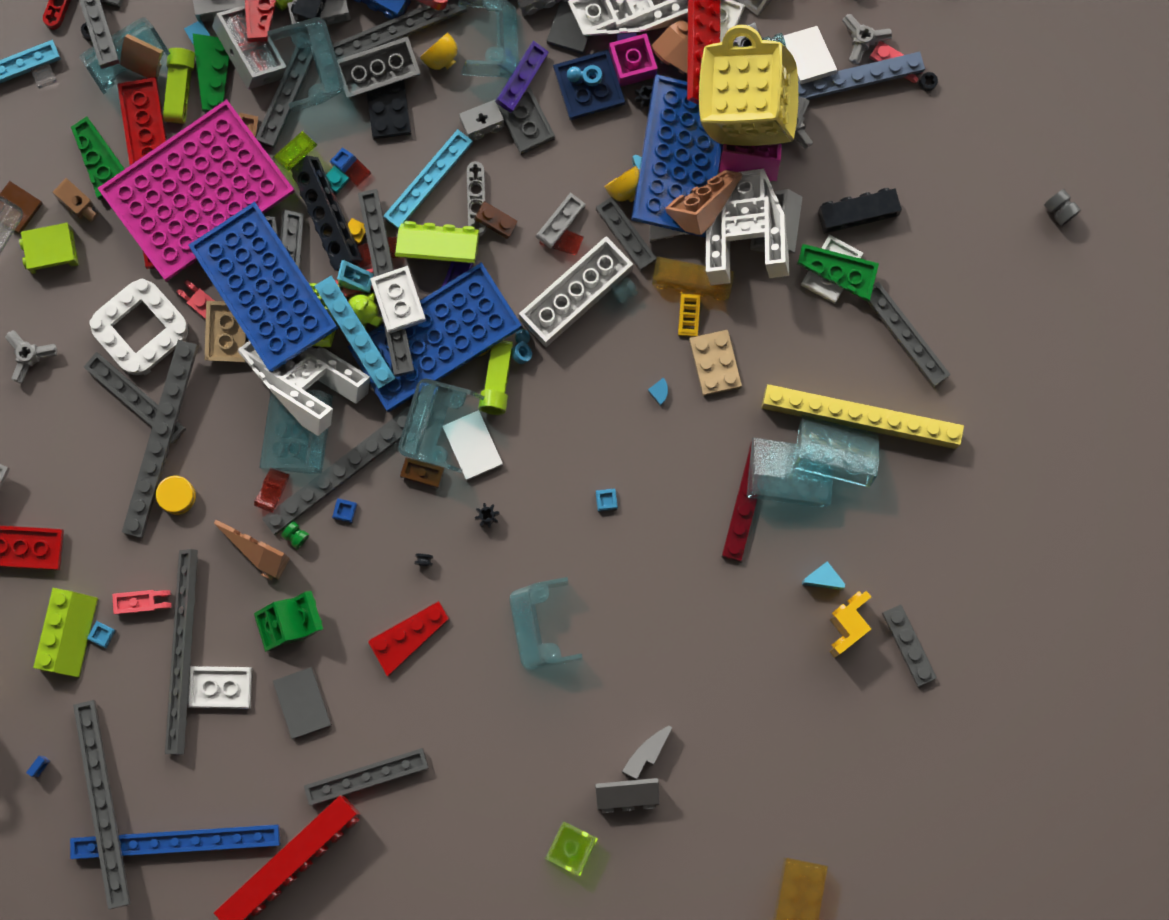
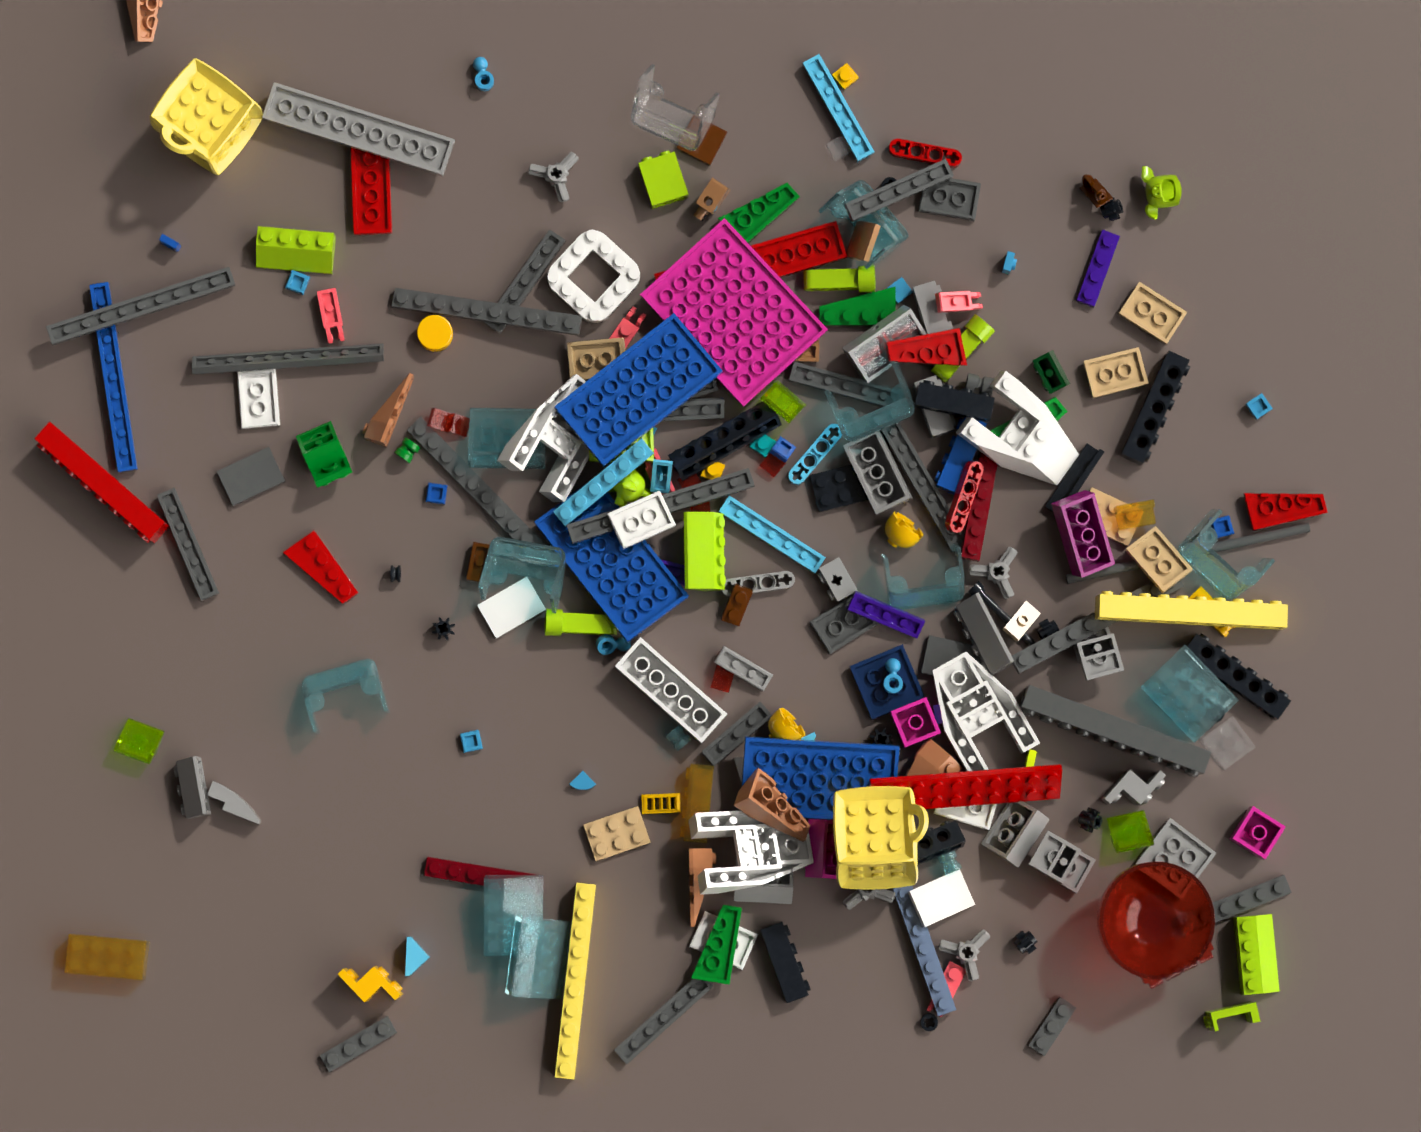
camera: 80 degrees right, 5 degrees up
(354, 128) = (813, 452): none -> medium azure beam
(756, 282) = (698, 861): none -> nougat wedge

